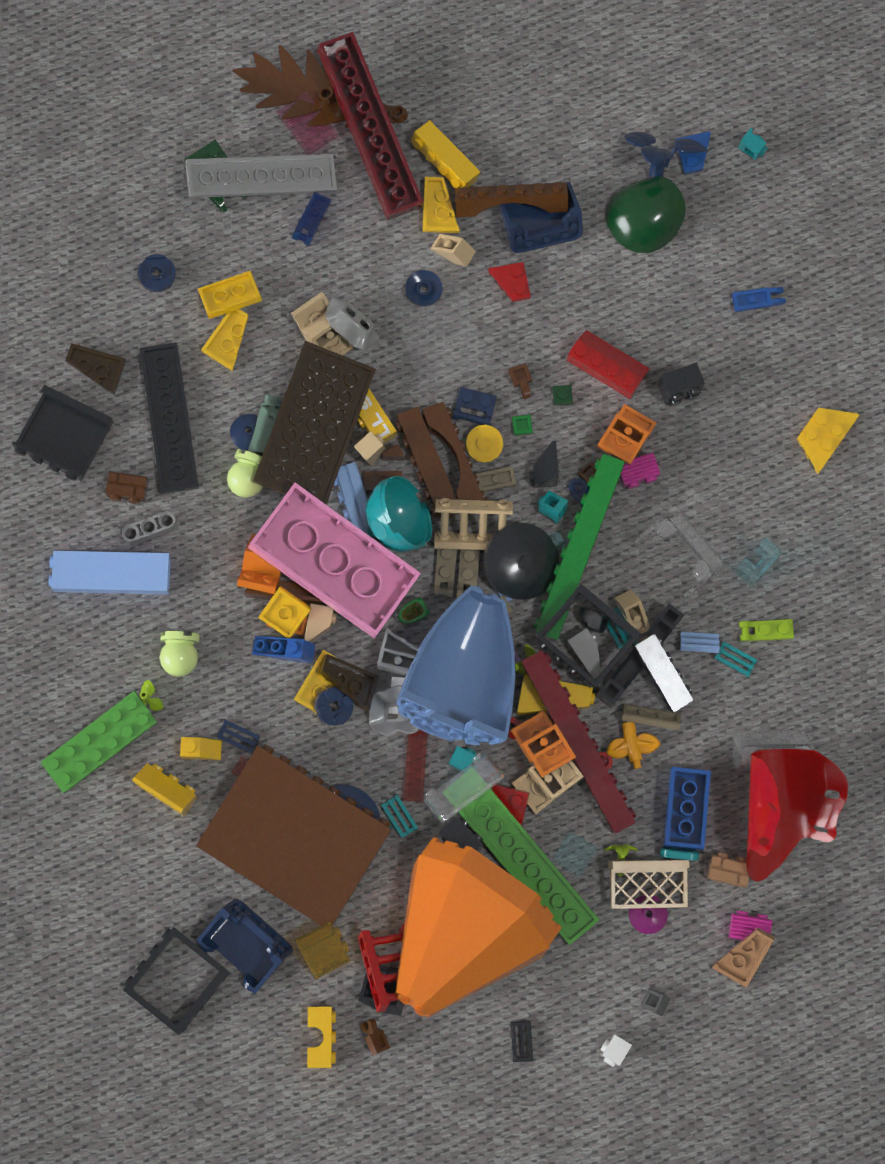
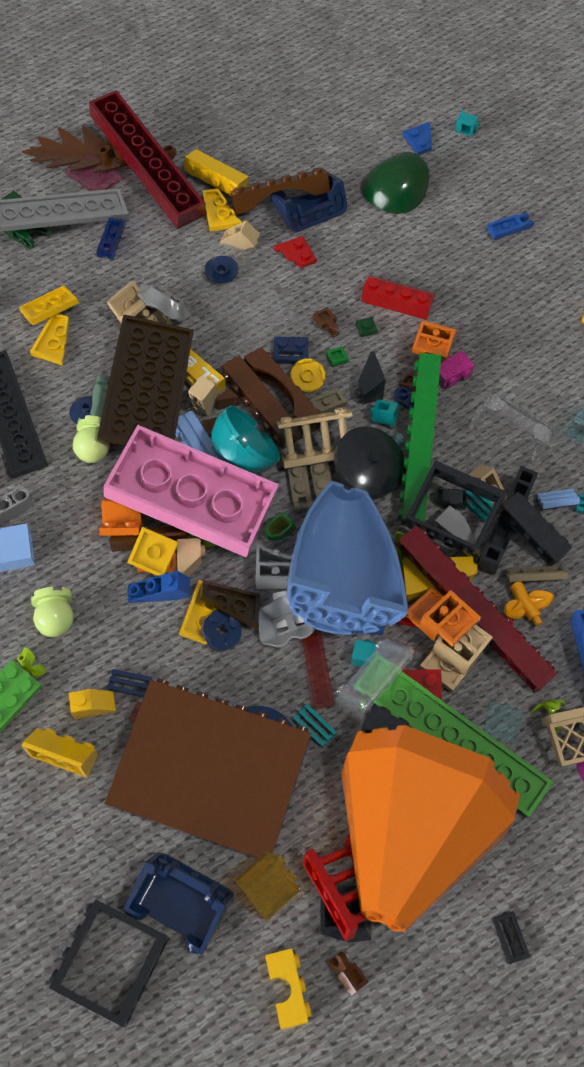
camera: 10 degrees left, 15 degrees down
(657, 156) = (395, 147): dark blue plant -> none
(681, 384) = (469, 293): black brick -> none

